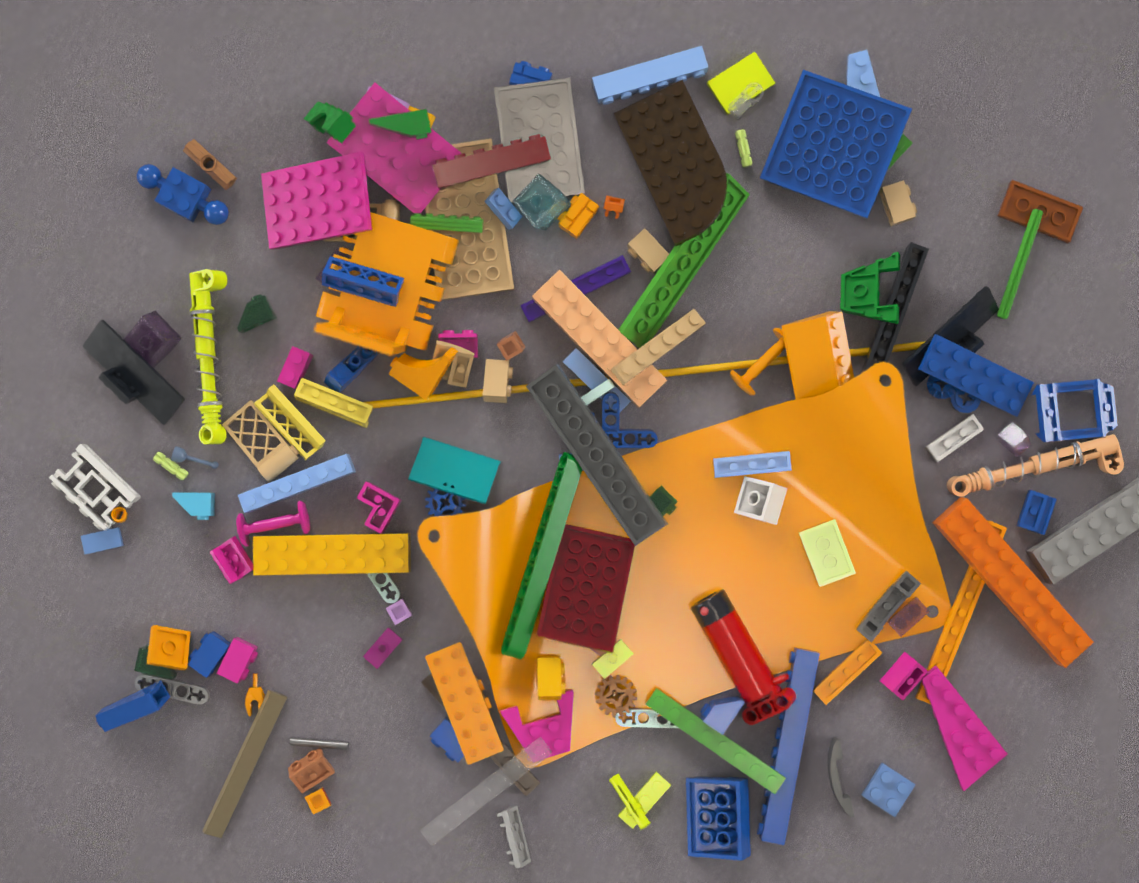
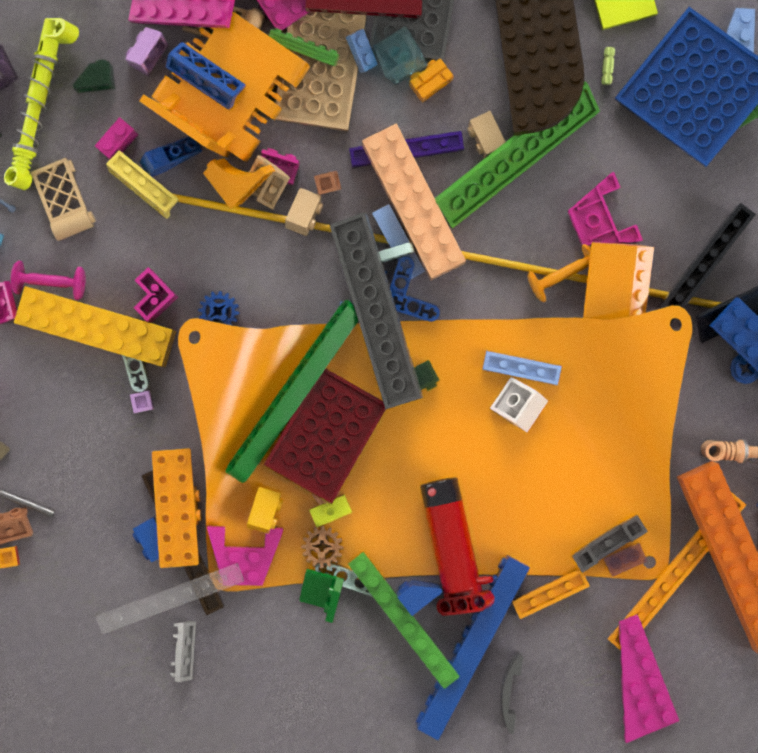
camera: 15 degrees right, 0 degrees up
(293, 416) = (101, 186): light yellow fence -> none
(296, 273) = (146, 51): none -> lavender slope
(296, 483) = (83, 249): light blue brick -> none
(382, 648) = (115, 431): magenta plate -> none
(457, 468) = (228, 275): teal container -> none
(613, 204) = (468, 80): orange tile -> none
(629, 738) = (322, 591): none -> green bracket
(634, 808) = (305, 659): neon yellow pin -> none
(647, 797) = (318, 655): neon yellow plate -> none
(658, 346) = (467, 226): tan plate -> none
(718, 817) = (383, 694): blue slope -> none
(744, 101) = (623, 20): clear piece -> none
(776, 301) = (593, 220): none -> dark pink wing
(827, 552) = (566, 474): yellowish green plate -> none
(862, 287) = (678, 235): green wing -> none
(888, 789) = (554, 718): medium blue plate -> none
(897, 203) = (738, 163): tan brick -> none
(903, 676) = (603, 614): dark pink brick -> none
(935, 390) = (719, 352): blue gear -> none
(954, 438) = (722, 403): white tile -> none

